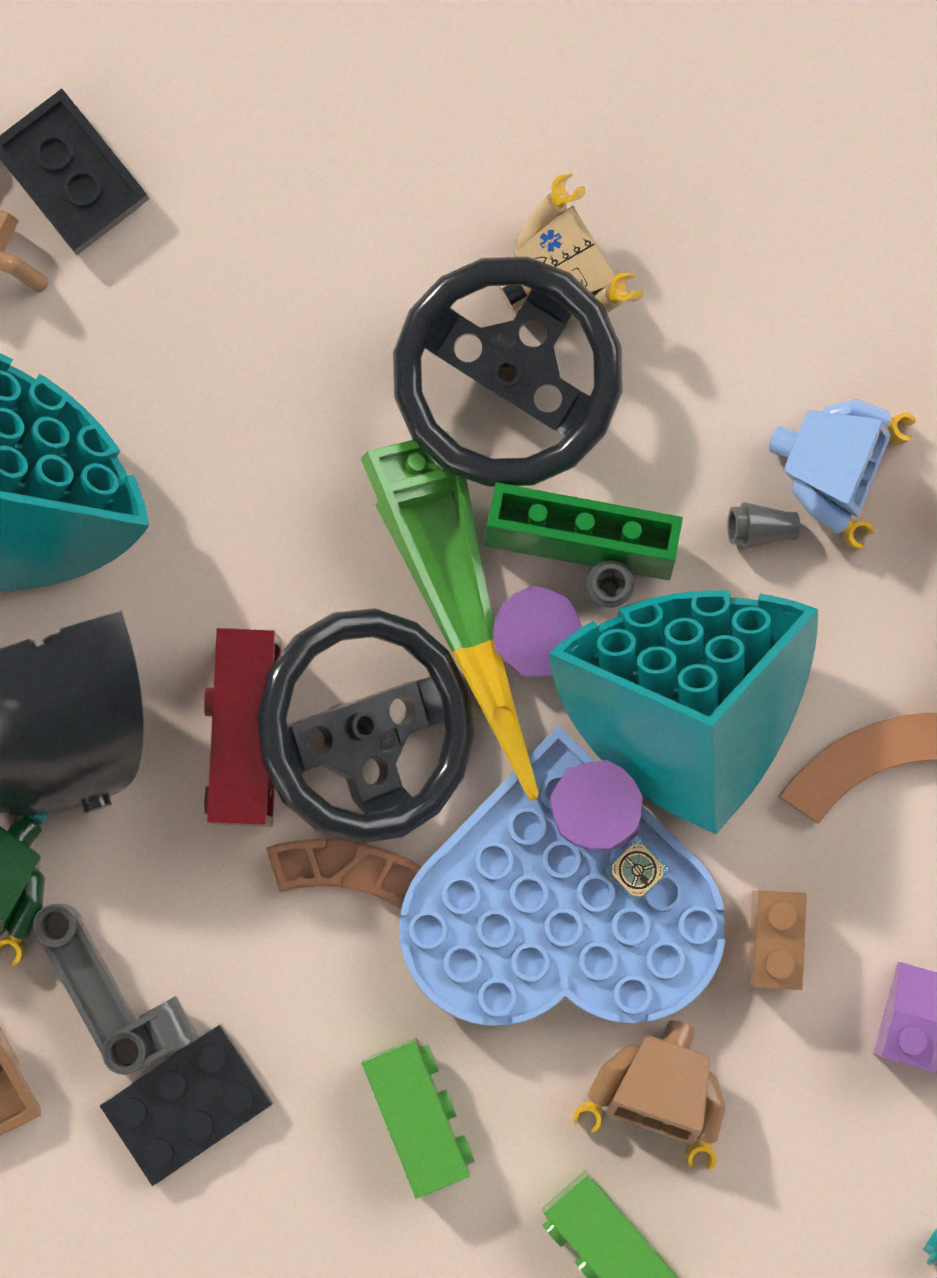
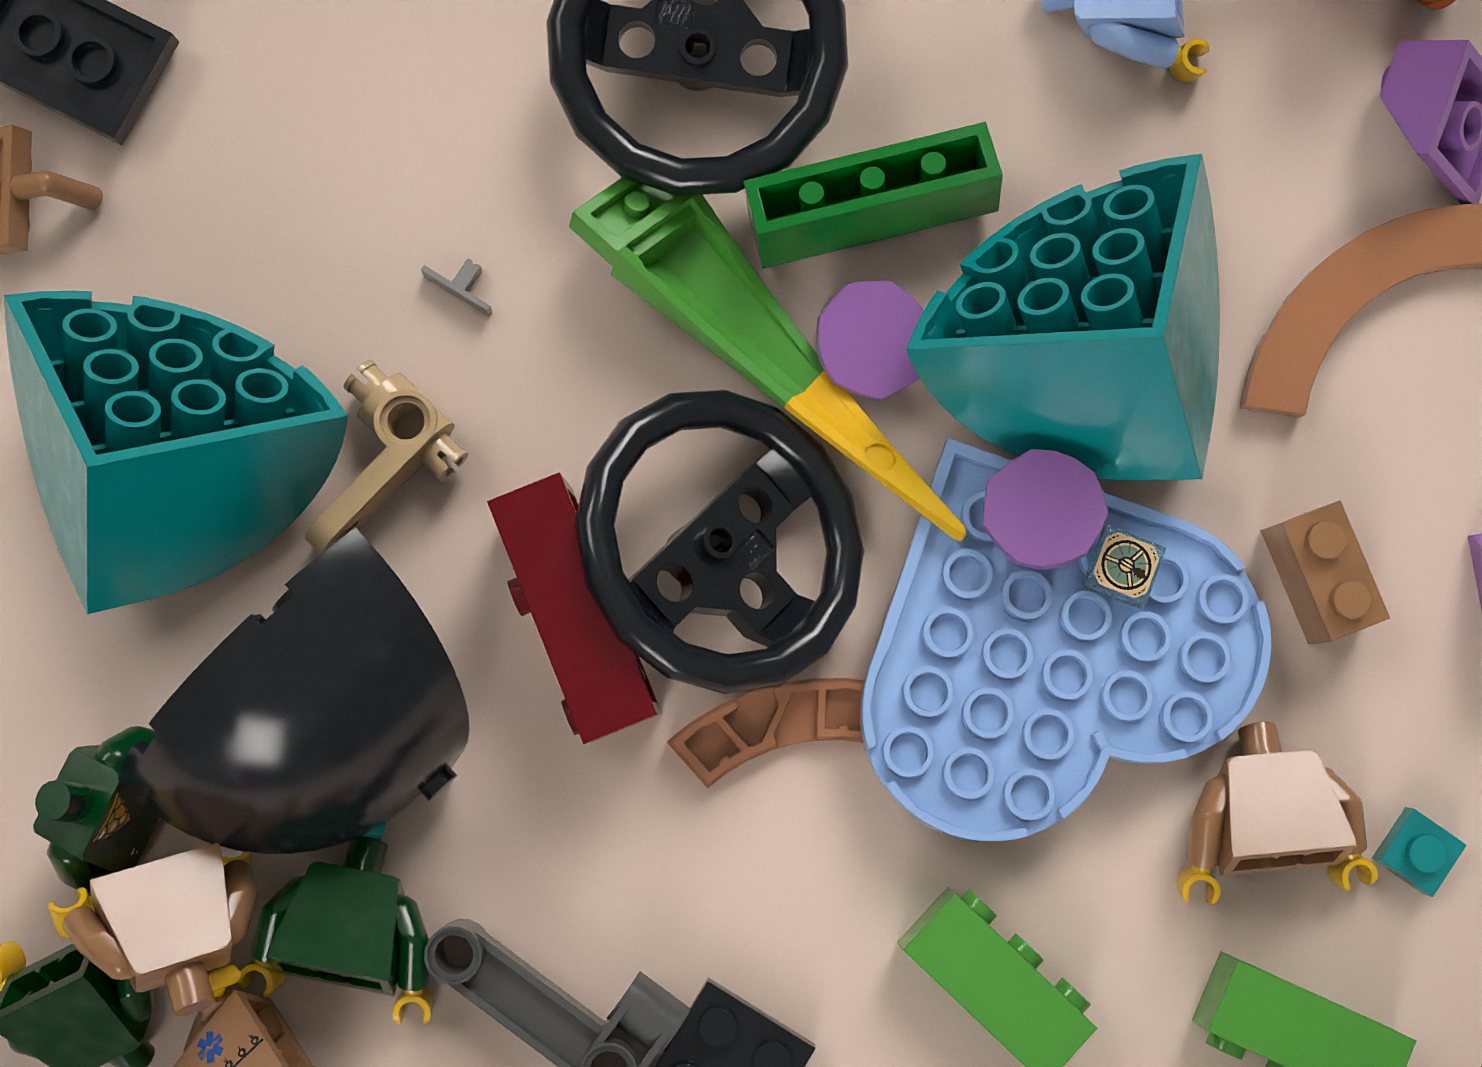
camera: 25 degrees left, 0 degrees up
(176, 523) = (382, 406): none -> tan piece
(269, 461) = (460, 284): none -> light grey piece
(616, 573) = (938, 231): dark grey cone -> none
(755, 1164) = (1419, 851): none -> teal plate
(760, 525) = (1072, 100): dark grey cone -> none

